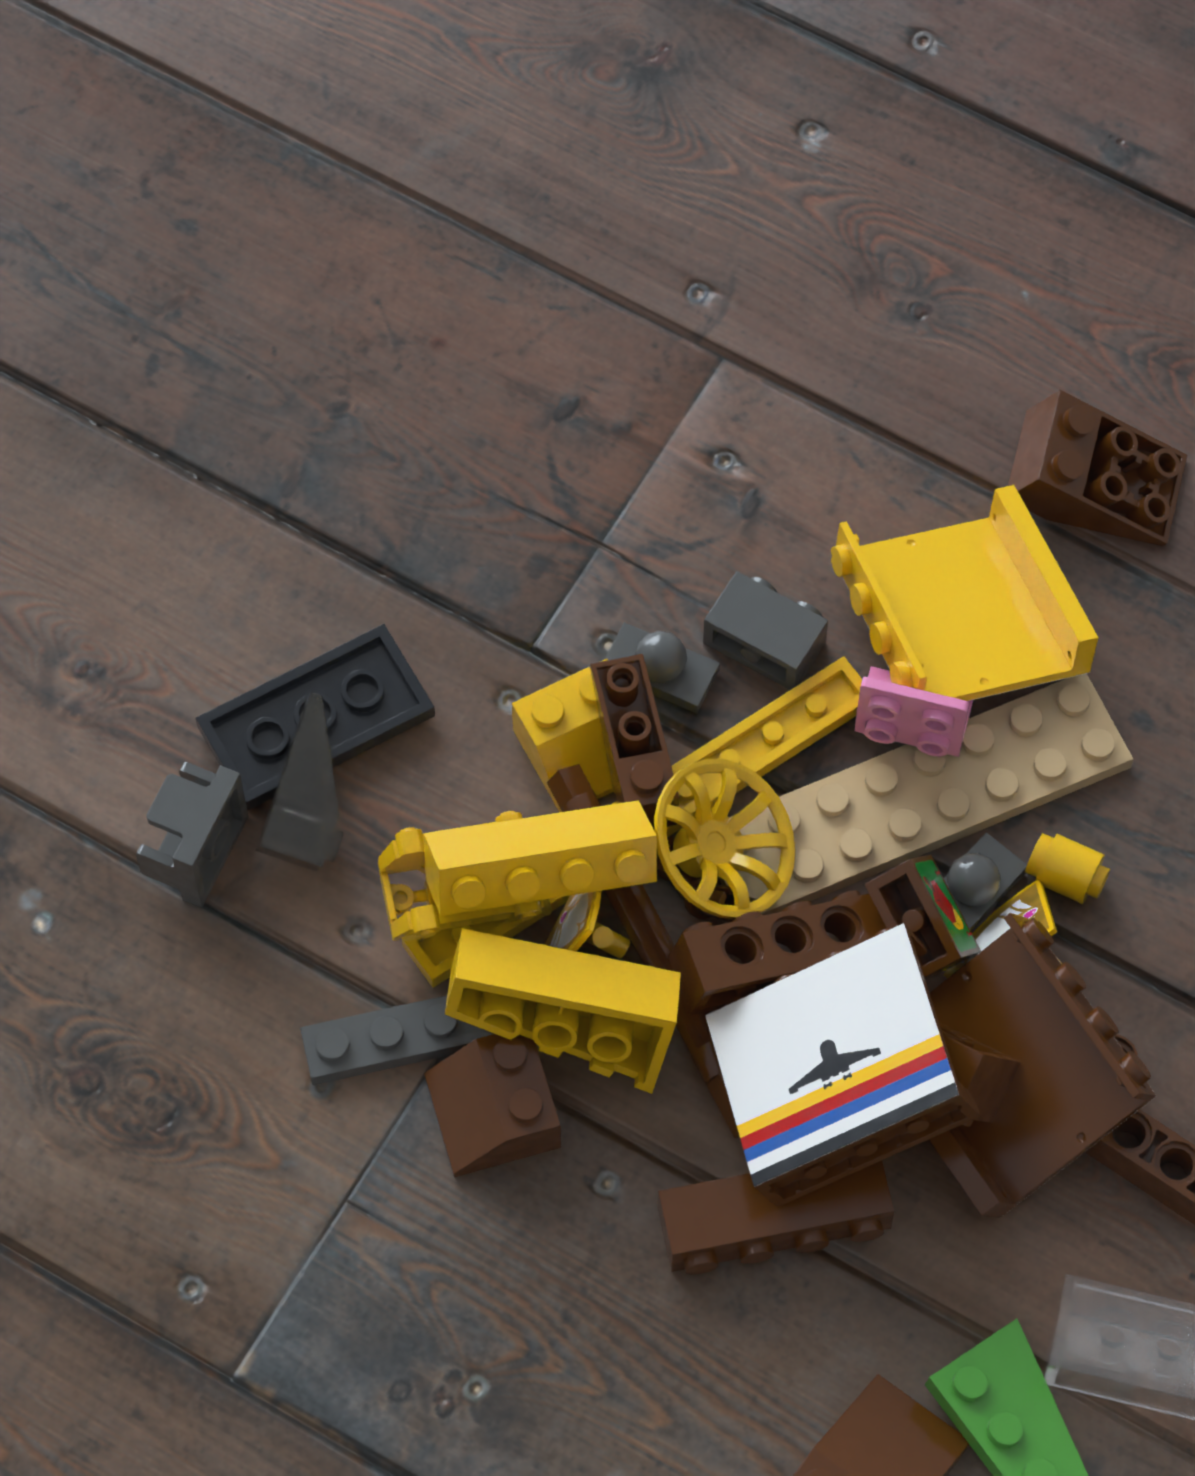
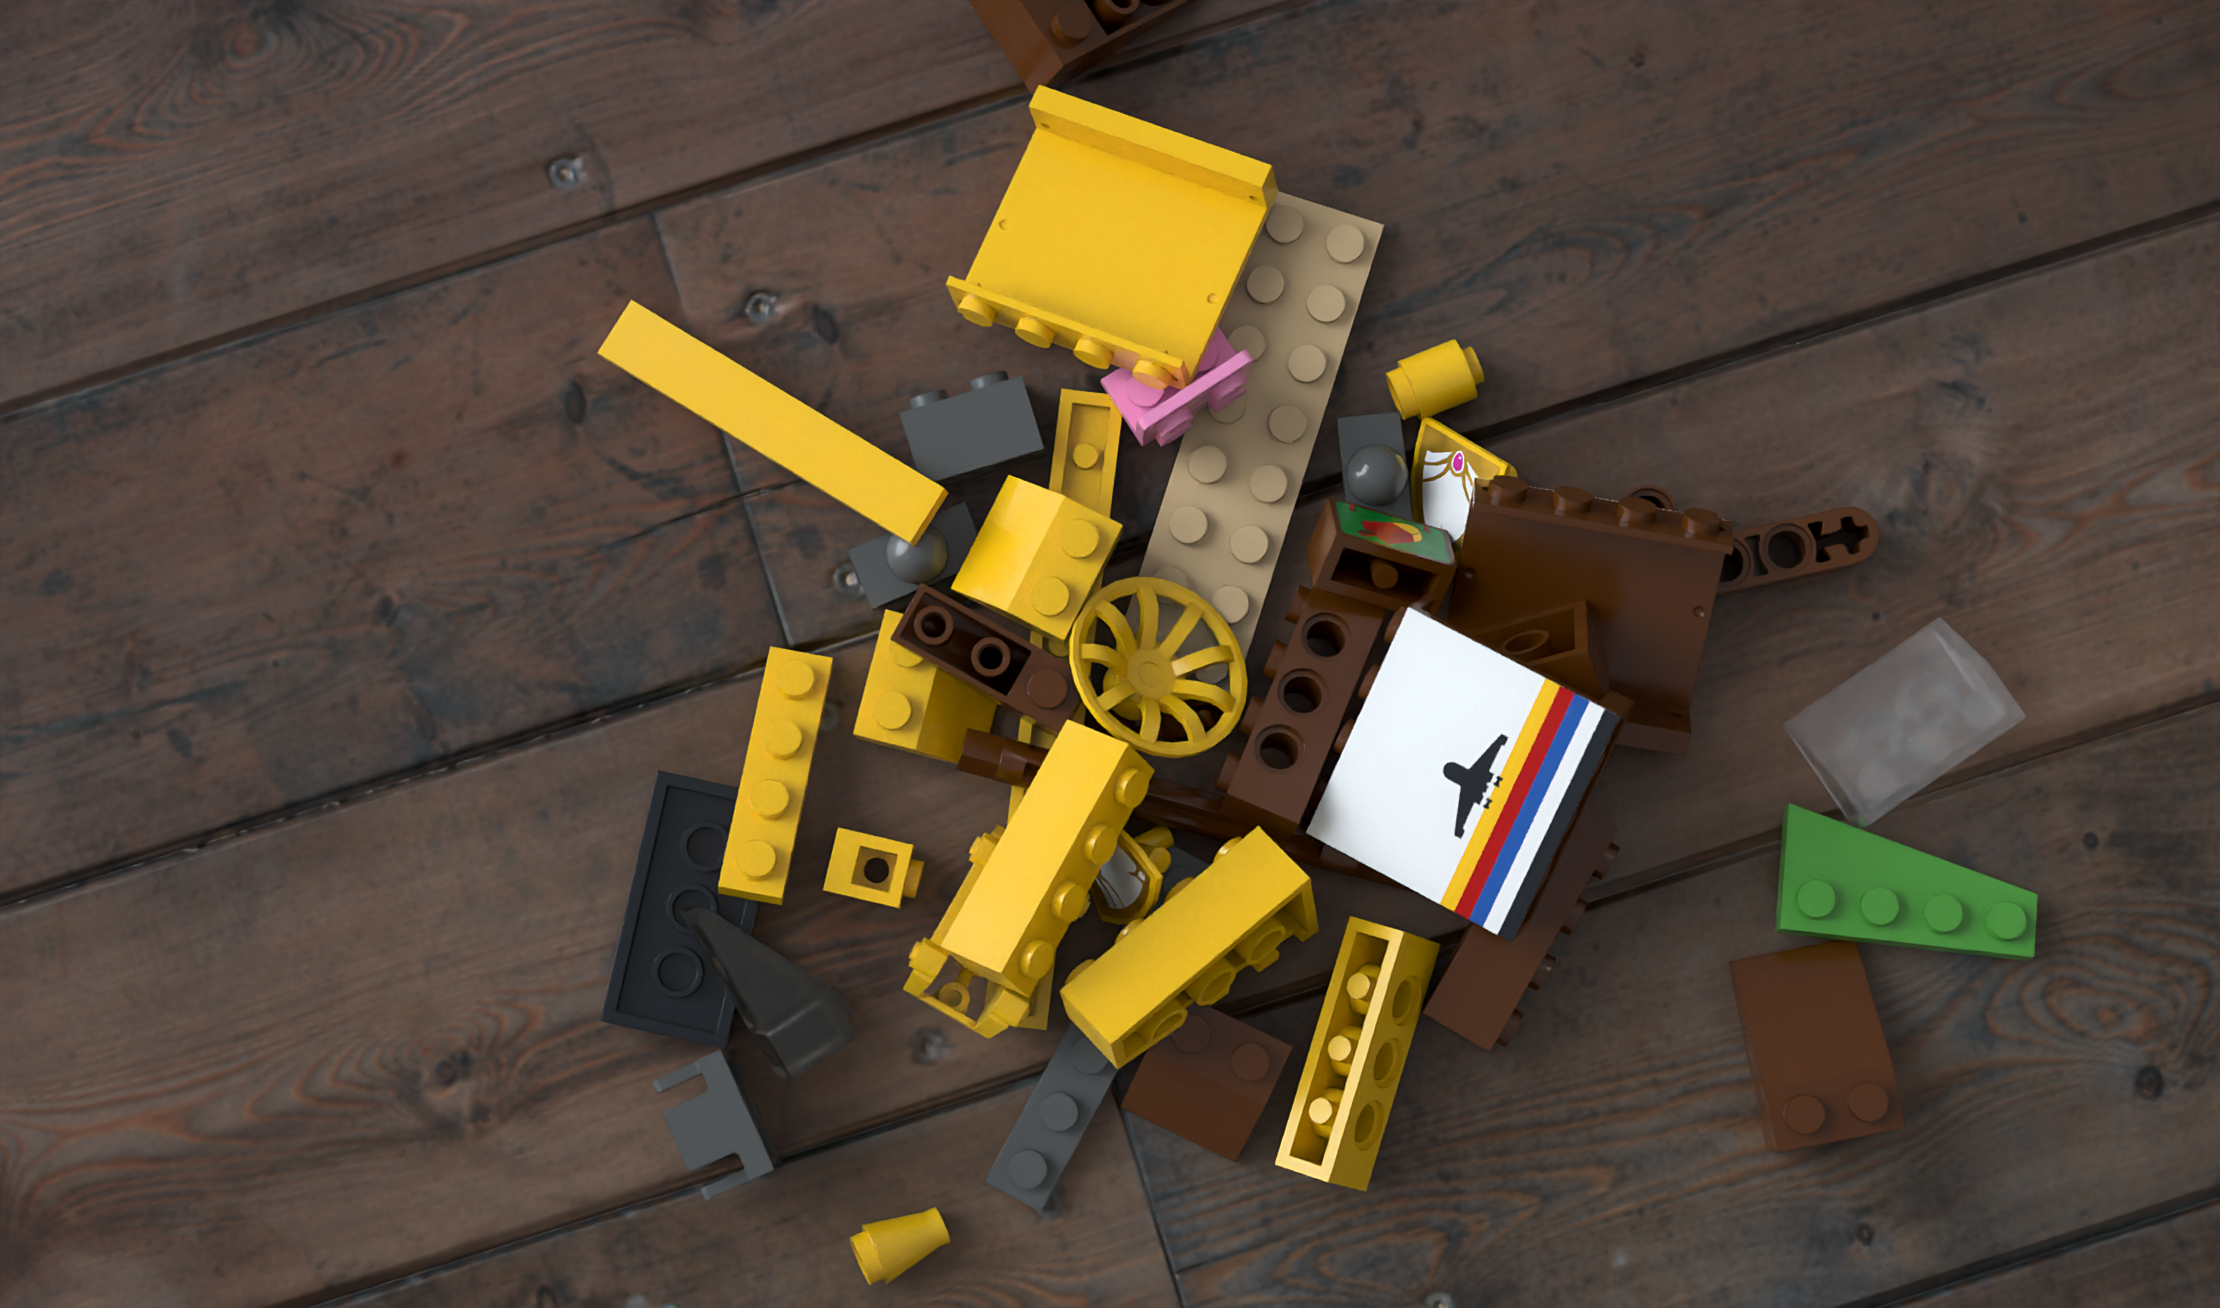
camera: 50 degrees left, 20 degrees up
(212, 1009) = (896, 1244): none -> yellow cone
(436, 779) = (848, 863): none -> yellow brick
(443, 689) = (775, 776): none -> yellow plate
(593, 1177) = (1357, 1054): none -> yellow brick
(660, 513) = (773, 423): none -> yellow tile
(727, 719) = (1037, 558): none -> yellow slope

